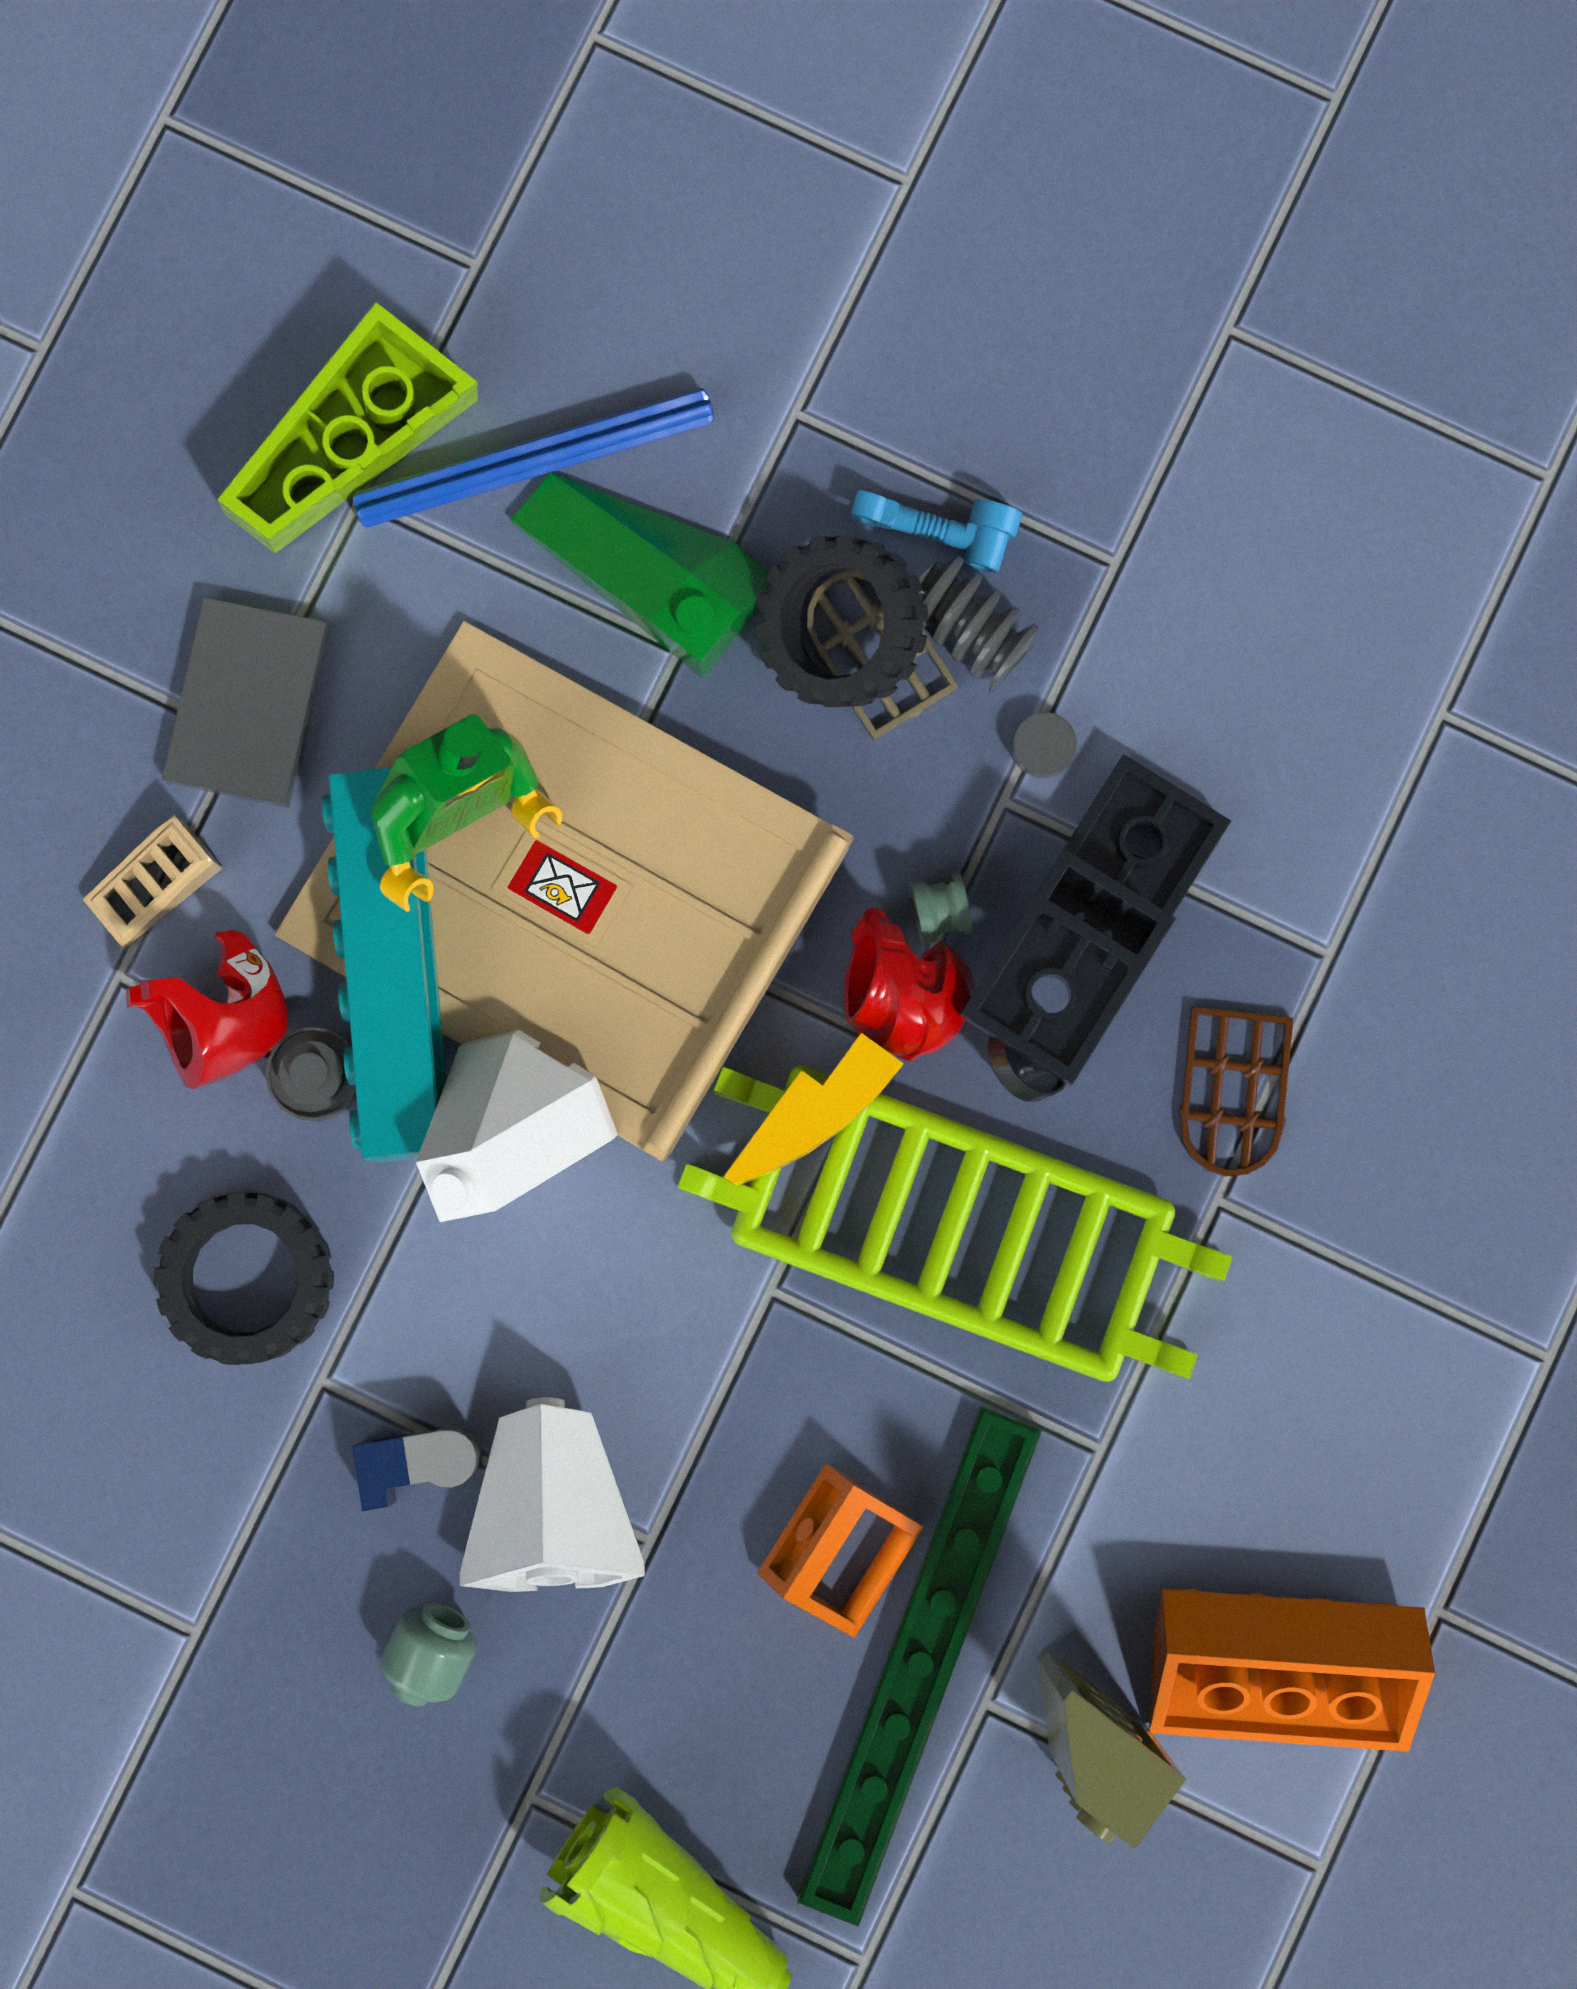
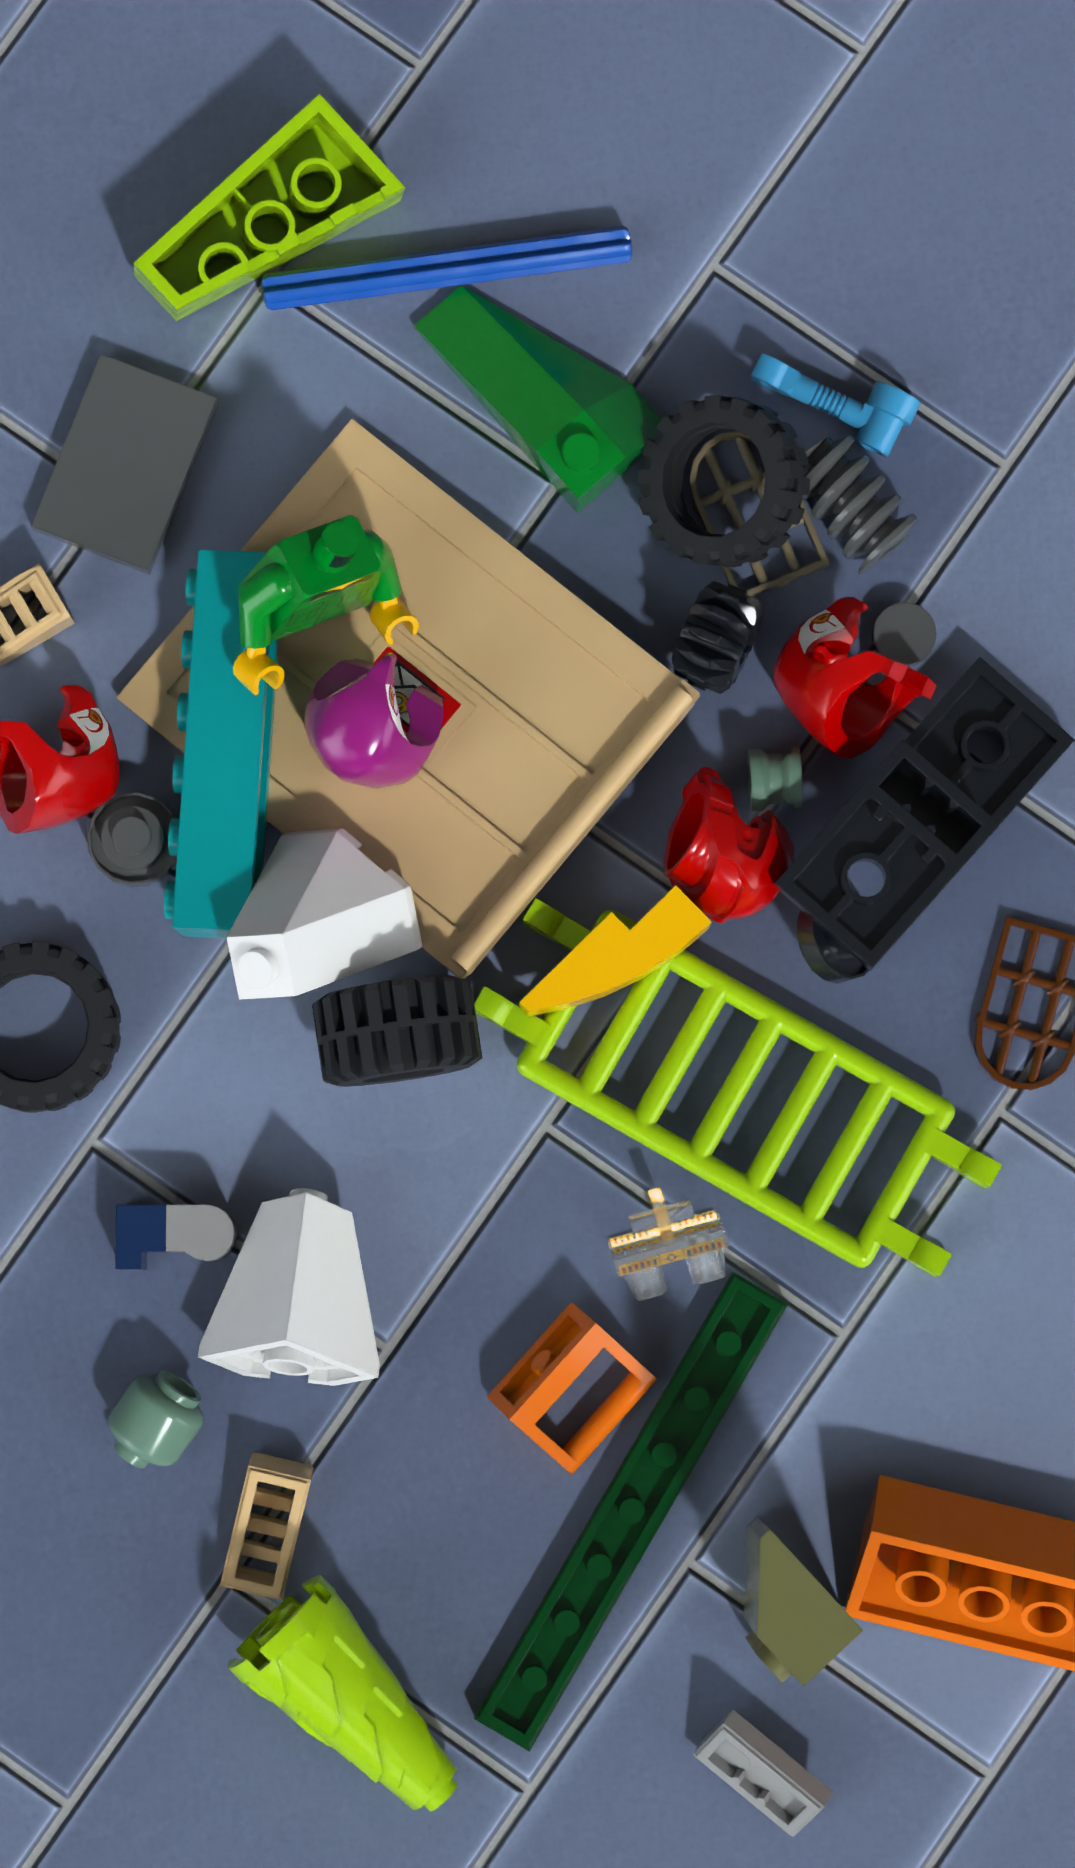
camera: 10 degrees right, 0 degrees up
(517, 928) = (358, 726): none -> magenta piece
(562, 1698) = (279, 1473): none -> tan slope
(605, 1224) = (397, 1030): none -> black tyre
(860, 777) = (717, 637): none -> black gear
(909, 1385) = (666, 1236): none -> clear hips
(980, 811) = (827, 687): none -> red piece
(1096, 1910) = (763, 1773): none -> light grey plate

